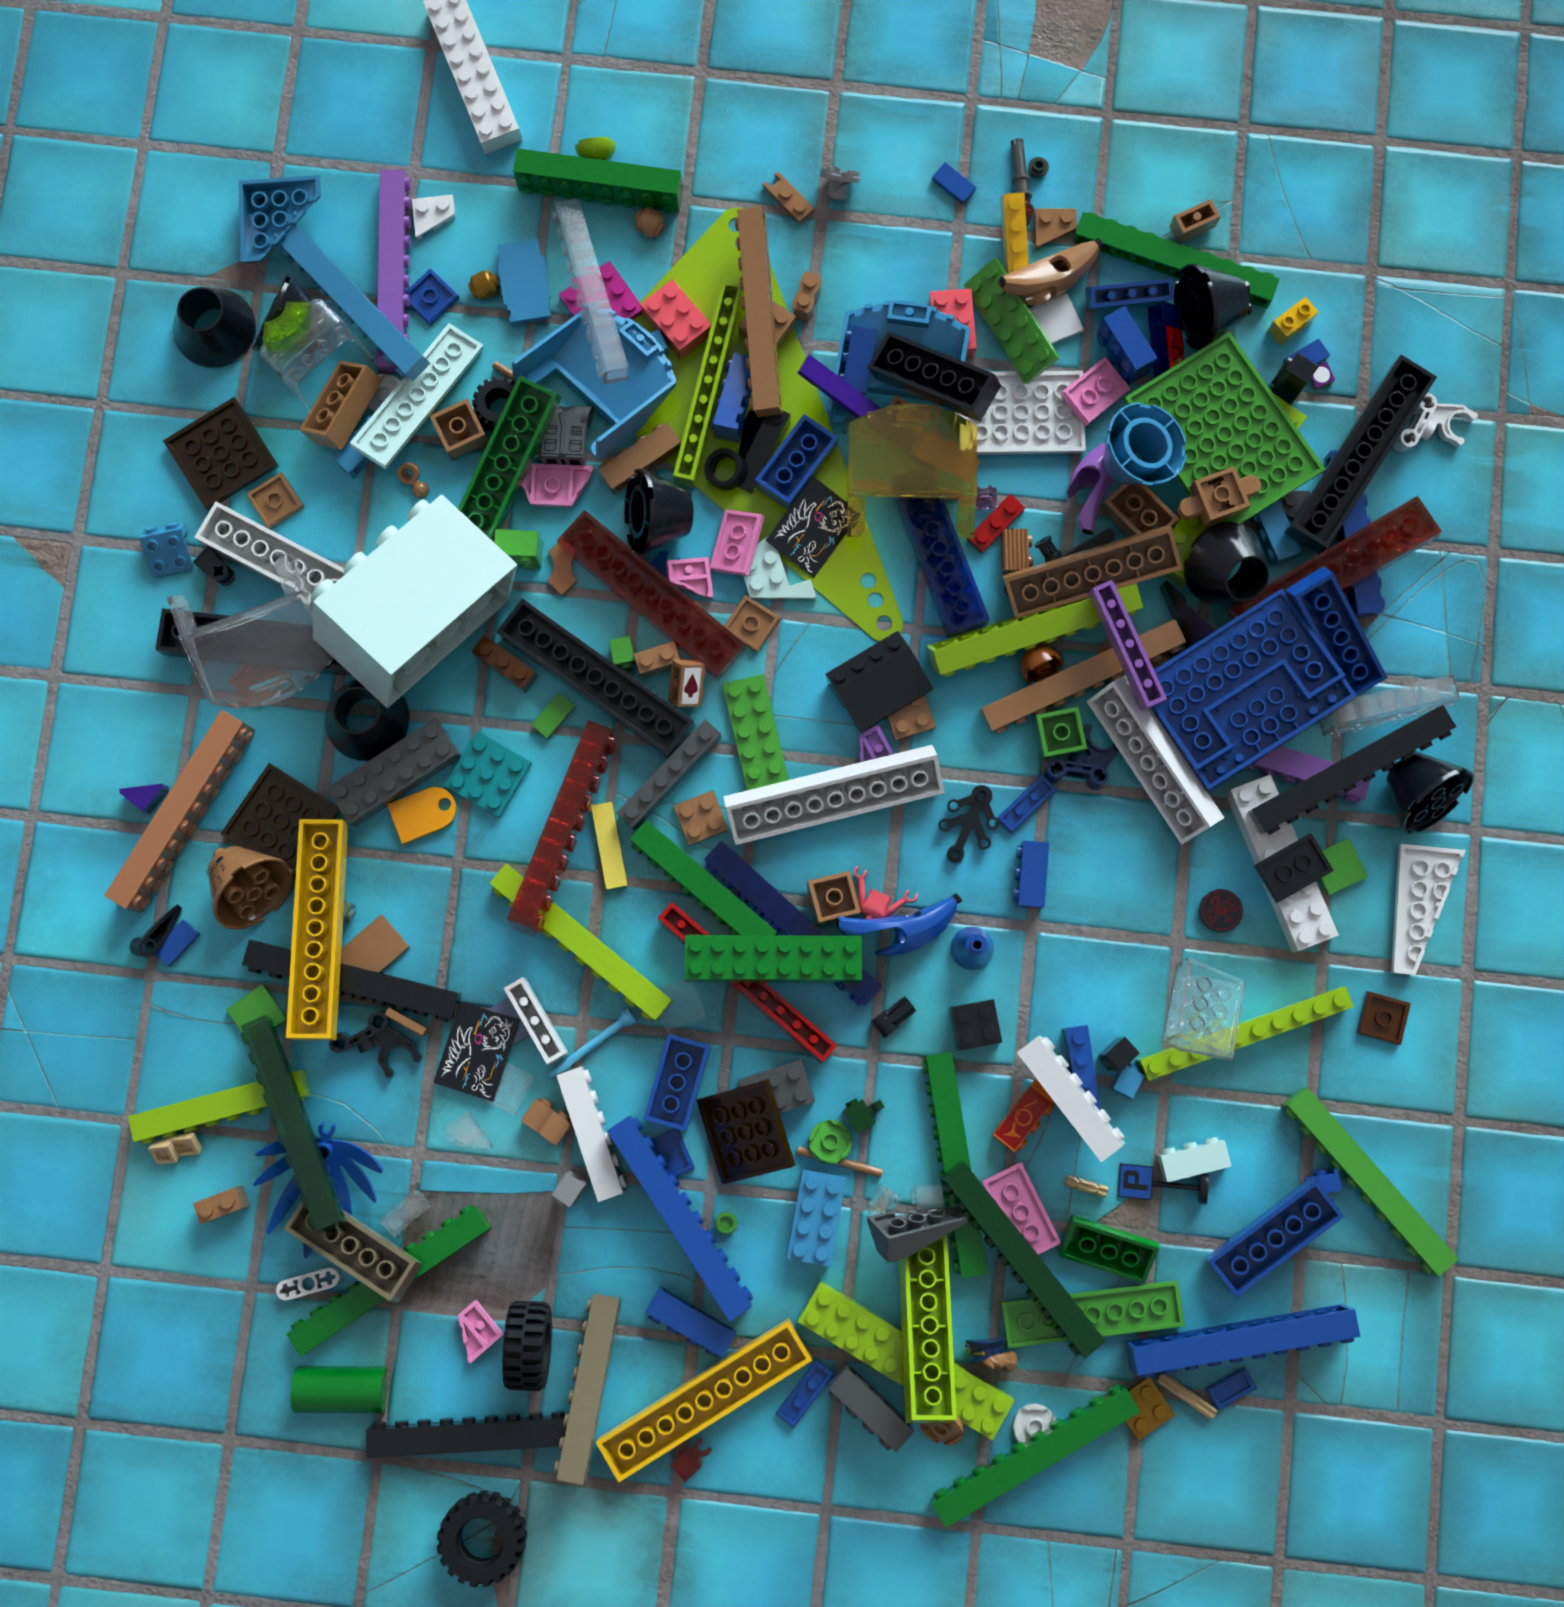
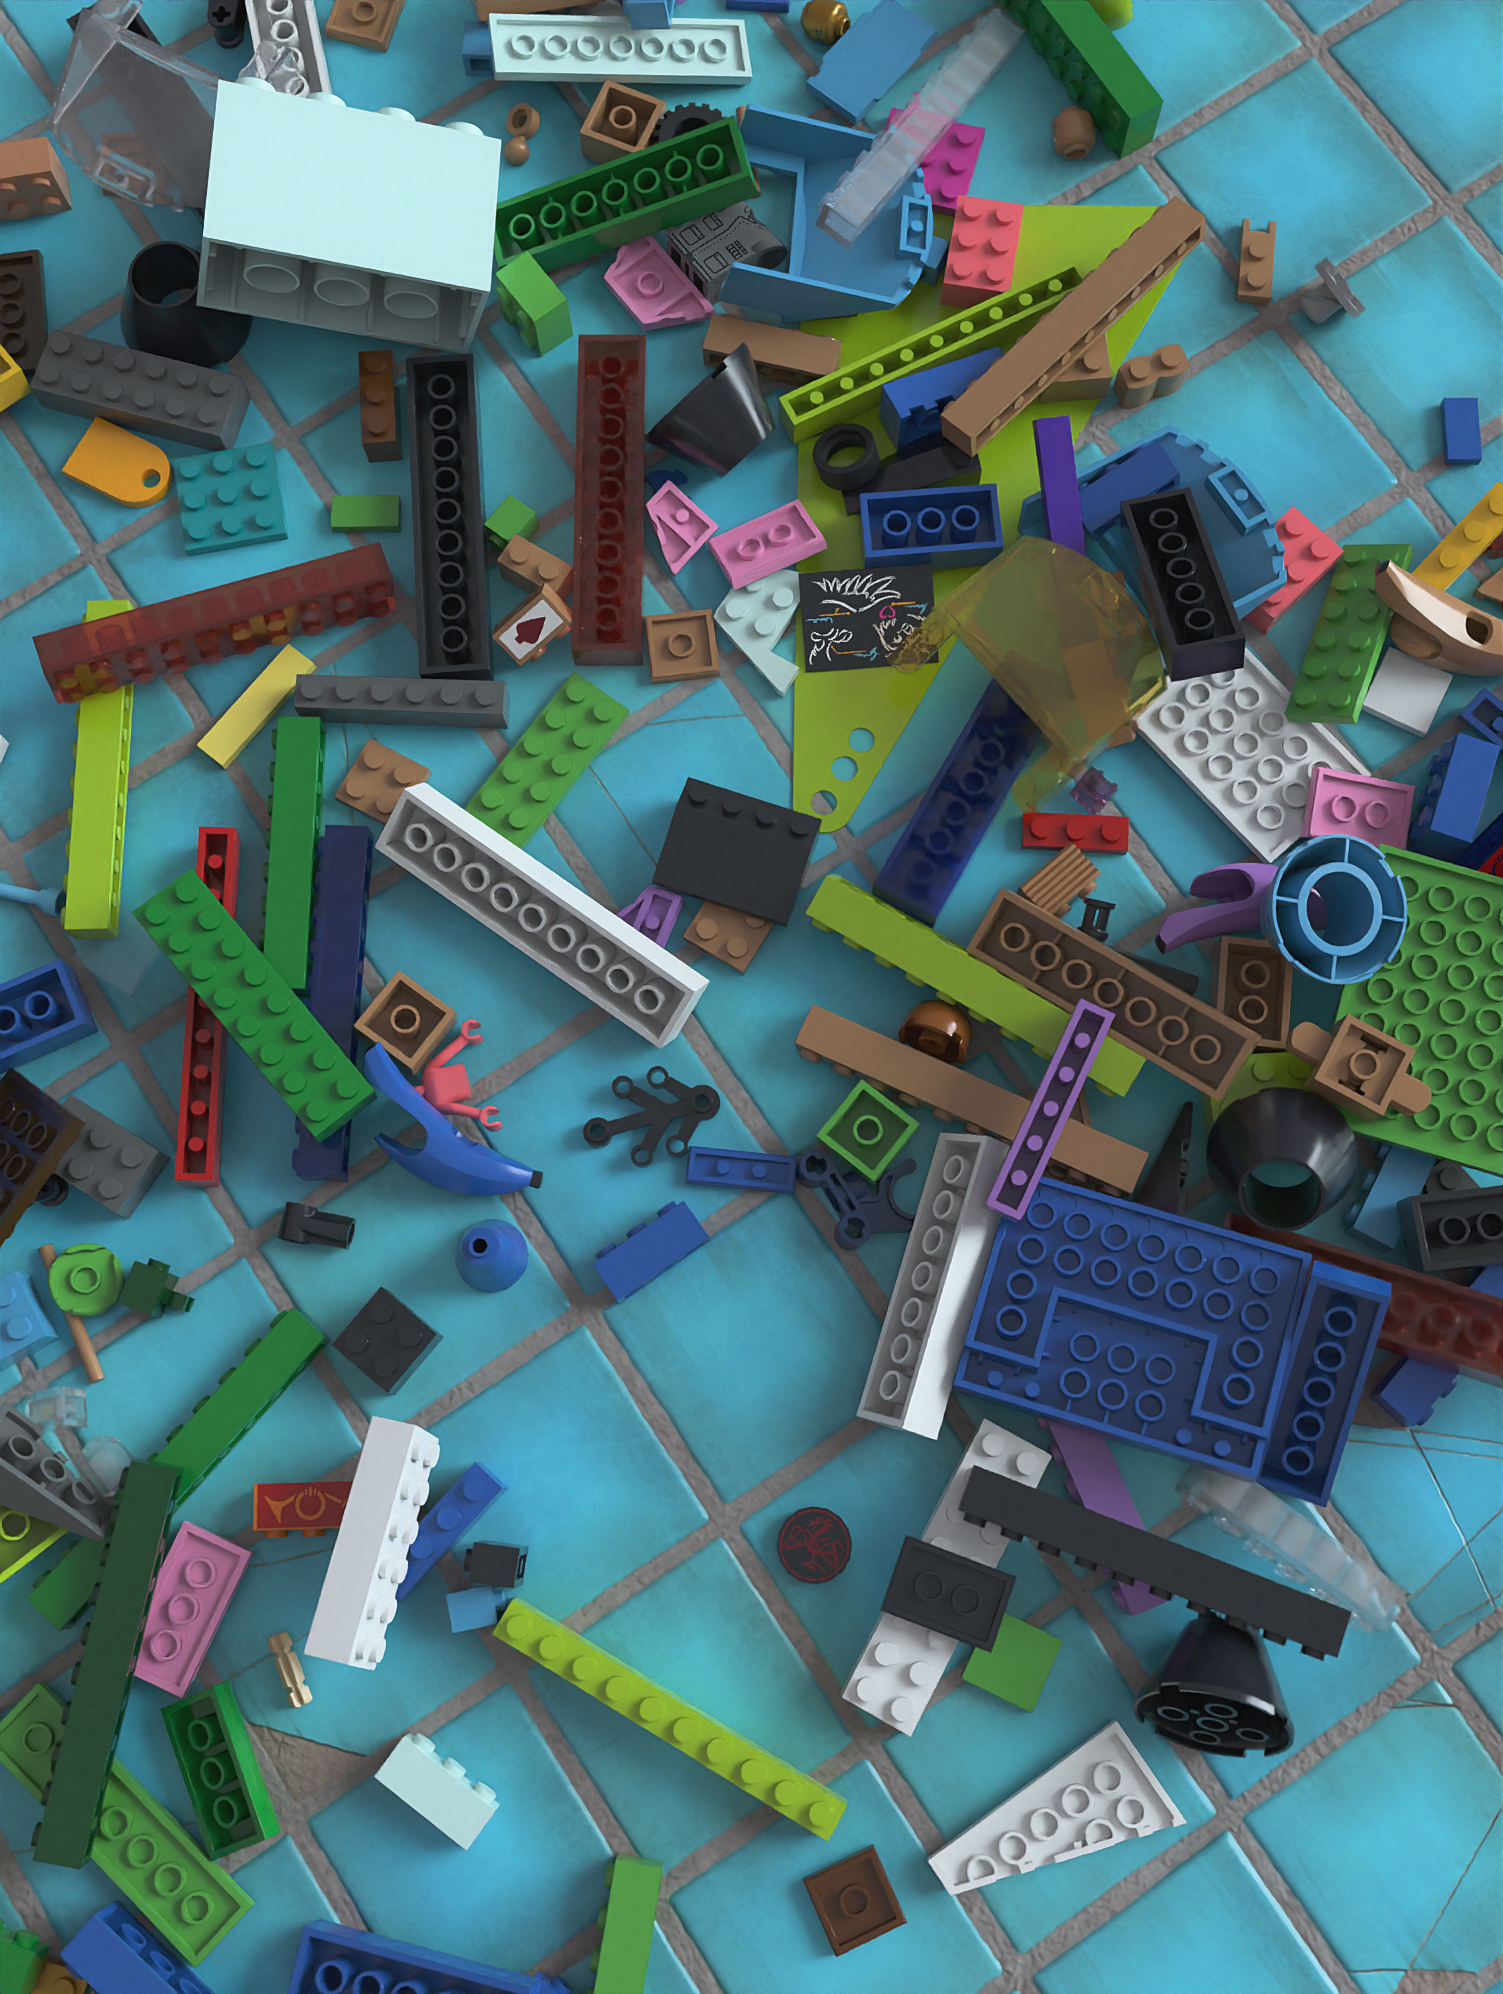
camera: 50 degrees right, 5 degrees down
(561, 577) = (550, 386): medium nougat tile -> none
(1137, 1183) = (347, 1738): piece -> none
(1203, 1010) = (649, 1632): clear slope -> none

